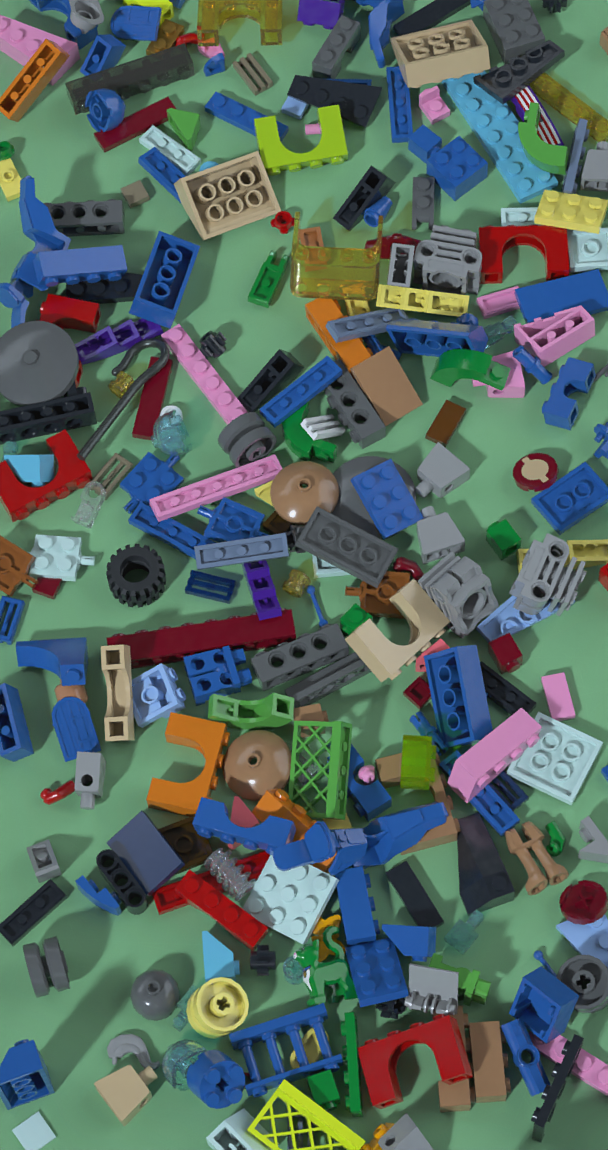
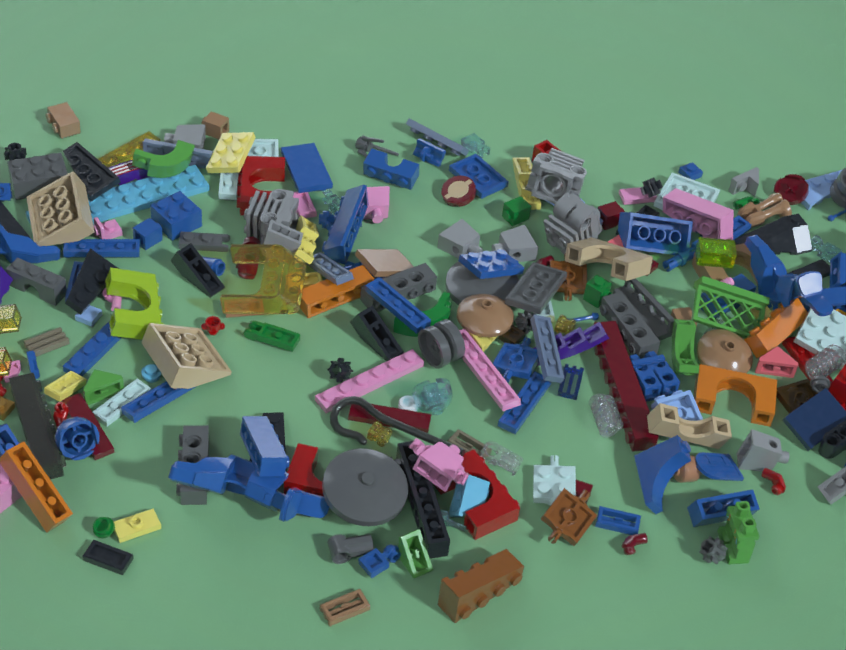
camera: 100 degrees left, 20 degrees down
(52, 426) = (439, 463): none -> bright pink torso
(116, 340) = (325, 432): dark purple slope -> none
(131, 559) = (582, 425): black tyre -> none
(135, 194) = (168, 427): dark tan tile -> none
(149, 97) = (60, 413): none -> red arm
(150, 479) = (475, 418): blue plate -> none
(151, 615) = (605, 414): none -> clear piece
(164, 279) = (275, 395): blue brick -> none
(185, 96) = (65, 386): none -> light yellow plate
(195, 861) = (819, 383): none -> dark grey plate
(213, 820) = (787, 364): blue arch -> none
(321, 423) = (426, 301): white tile -> none
(445, 423) = (413, 239): reddish brown tile -> none
(469, 365) = (372, 215): green arch -> none
(532, 364) = (368, 180): blue pin -> none
(555, 335) = (342, 169): bright pink wedge -> none
(555, 704) = (651, 187): none -> black gear

